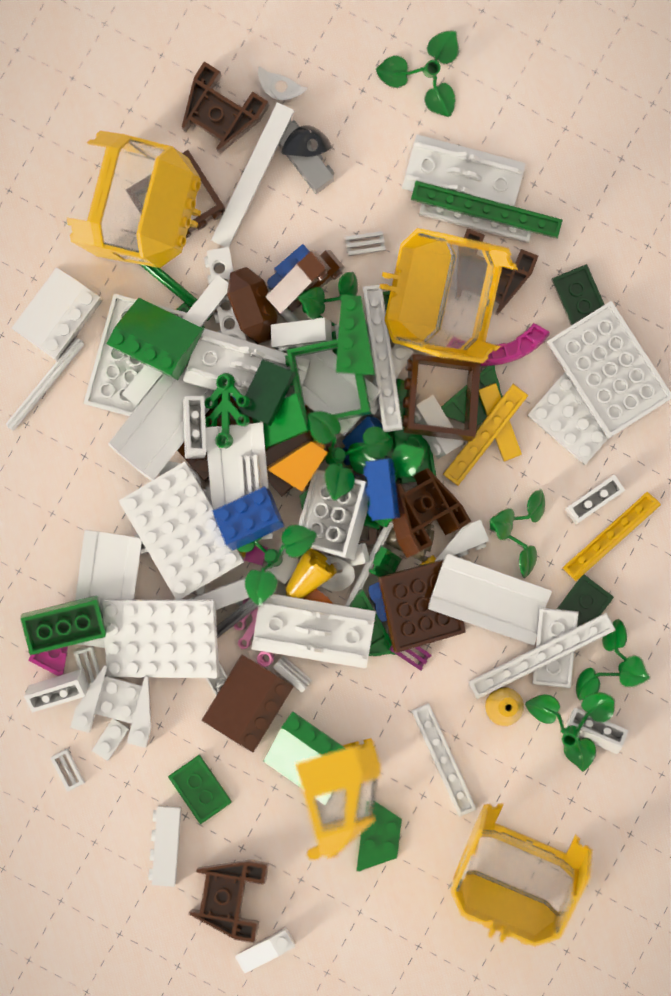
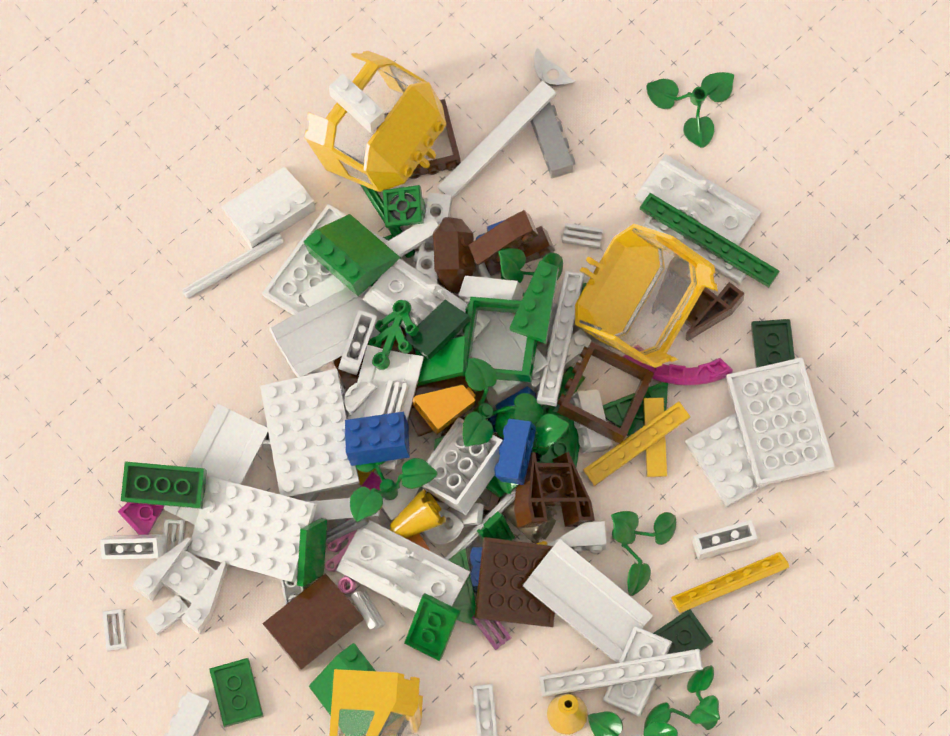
camera: 25 degrees right, 15 degrees down
(113, 197) = (356, 103): none -> white brick
(189, 275) = (404, 208): none -> green piece
(212, 480) = (357, 395): none -> white tile
(217, 113) = (485, 77): reddish brown wedge -> none
(224, 642) = (312, 552): none -> green tile
(297, 142) = (548, 125): black piece -> none
(358, 672) = (432, 627): none -> green tile

